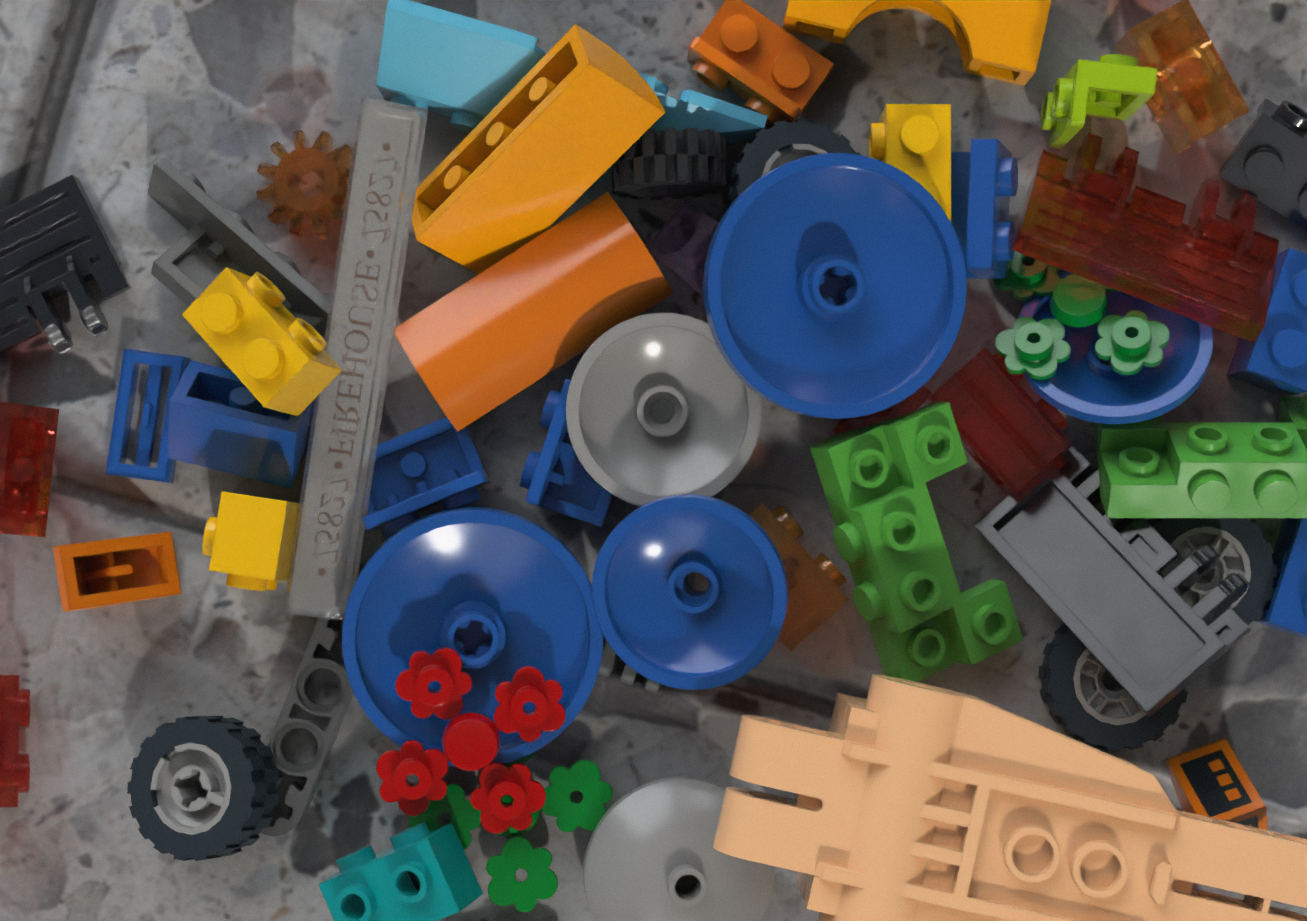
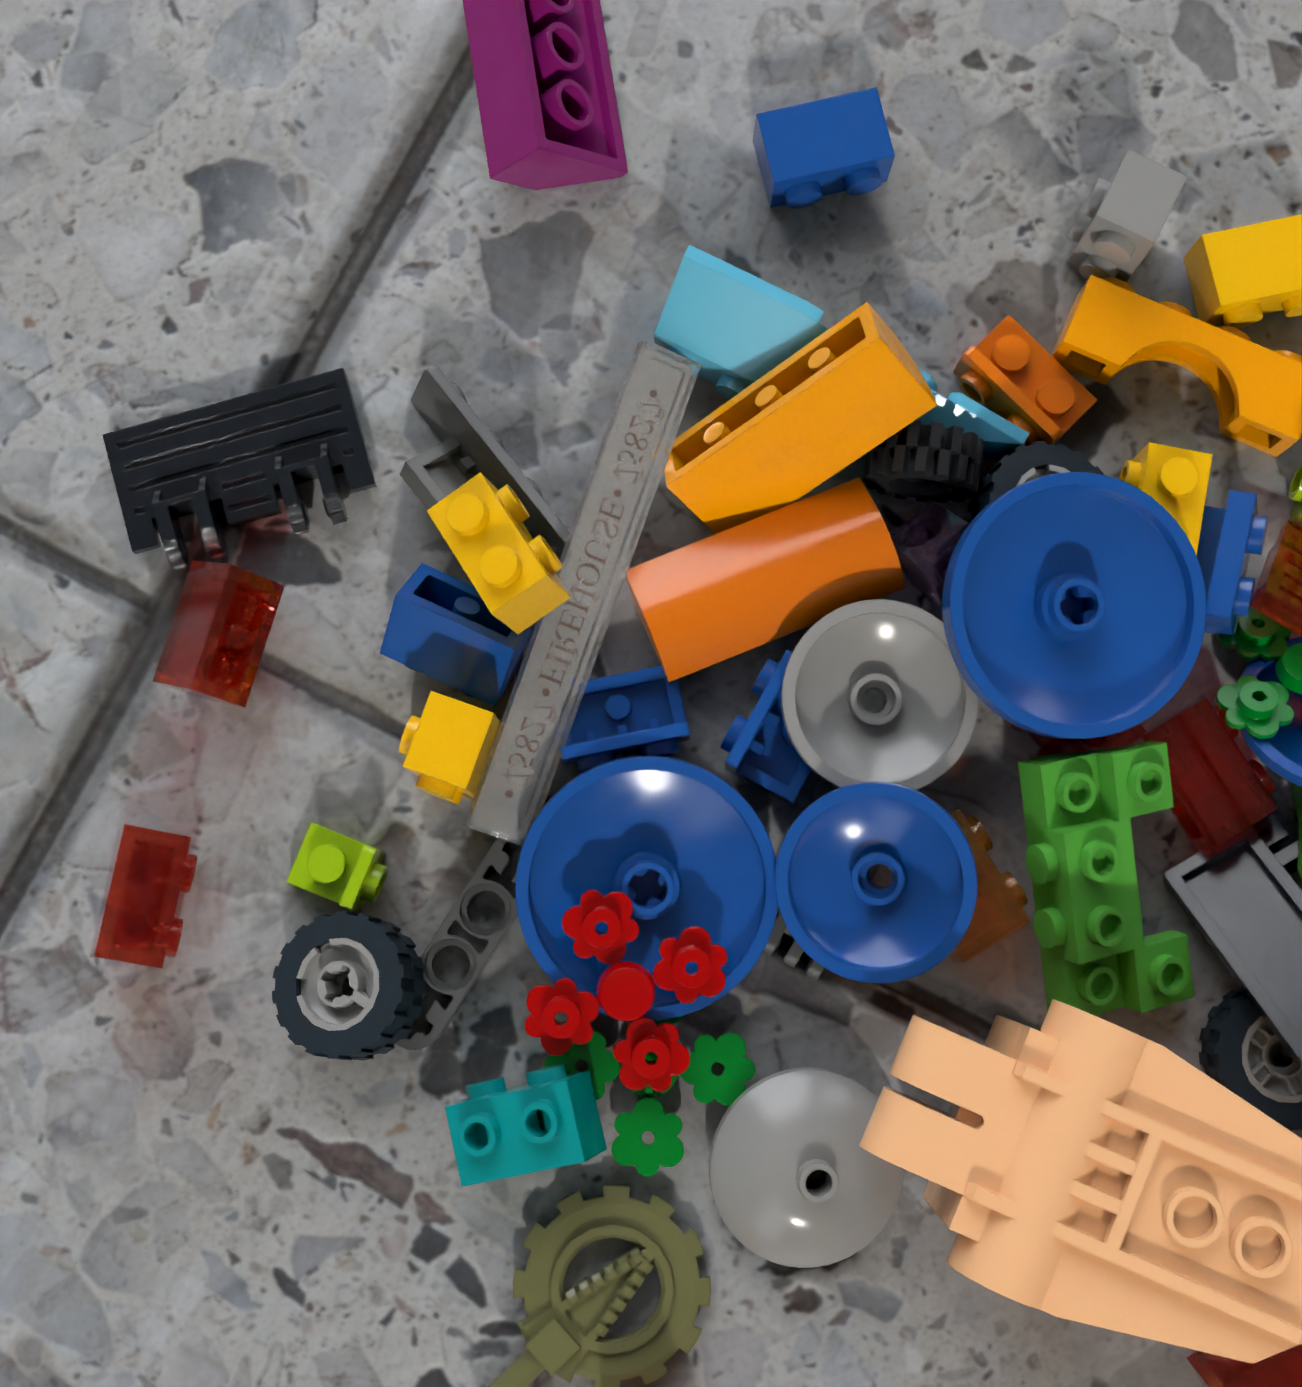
camera: 15 degrees right, 5 degrees down
(116, 571) = (306, 755): orange slope -> none
(124, 410) = (343, 607): blue tile -> none
(171, 674) = (338, 868): none -> lime bracket
(293, 166) = (547, 417): clear orange gear -> none

